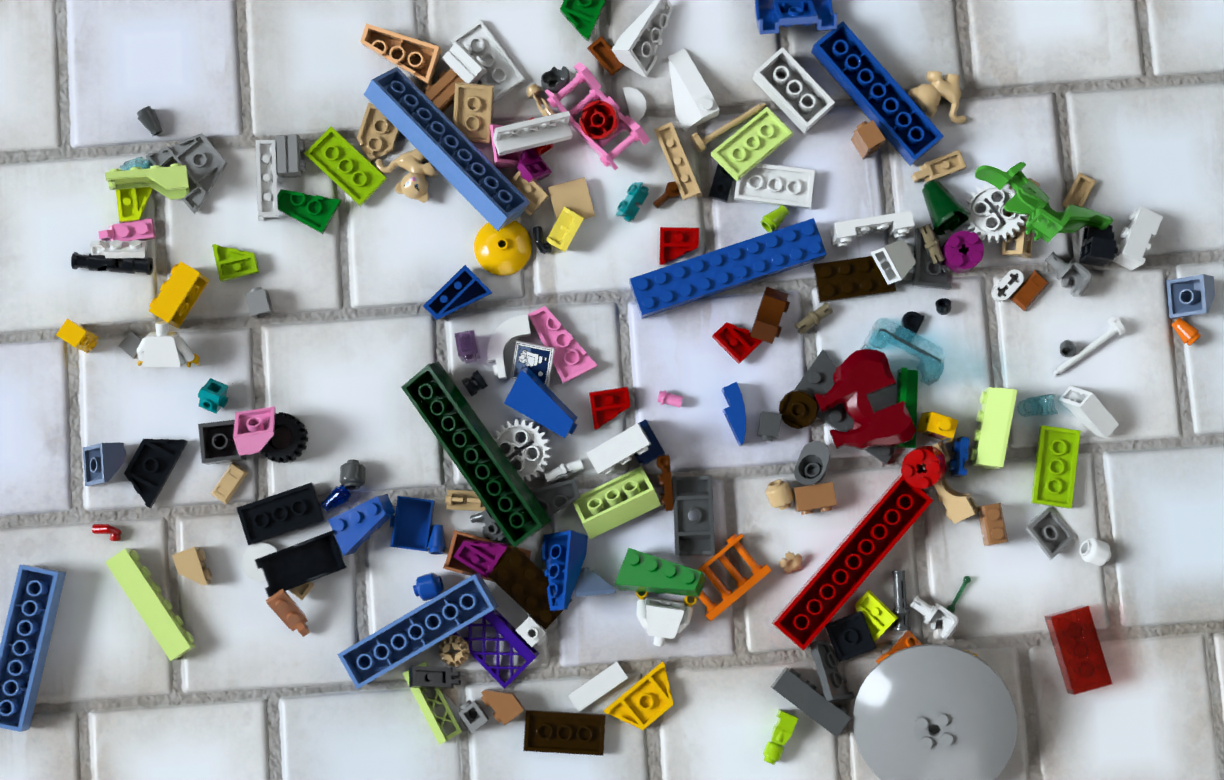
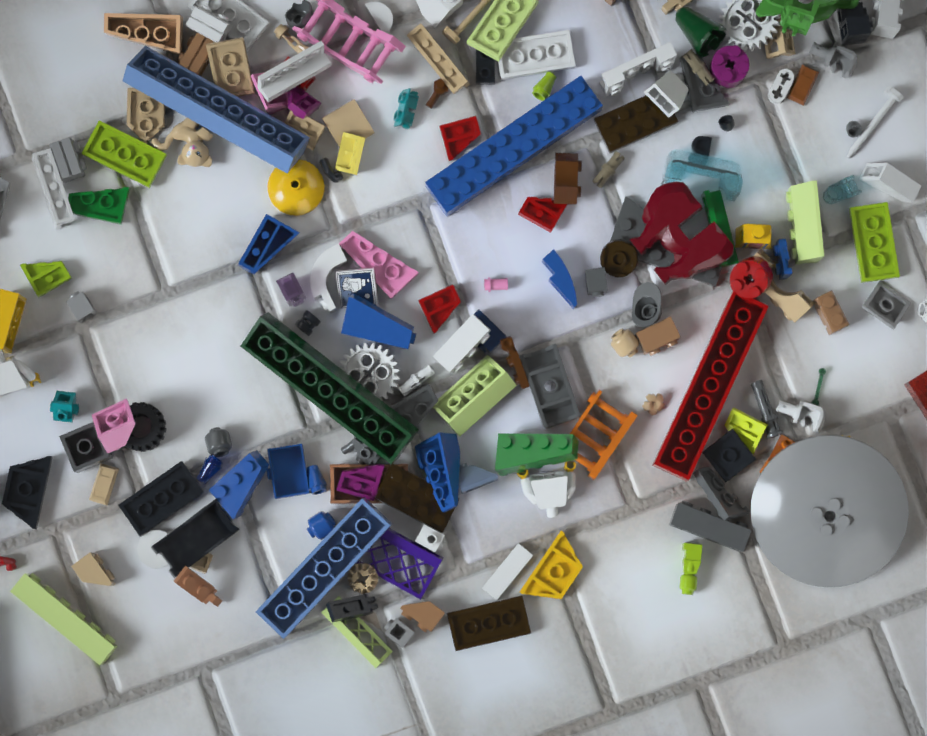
camera: 15 degrees left, 0 degrees up
(463, 501) = (330, 436): tan hinge -> none
(599, 120) = (352, 41): red cylinder -> none

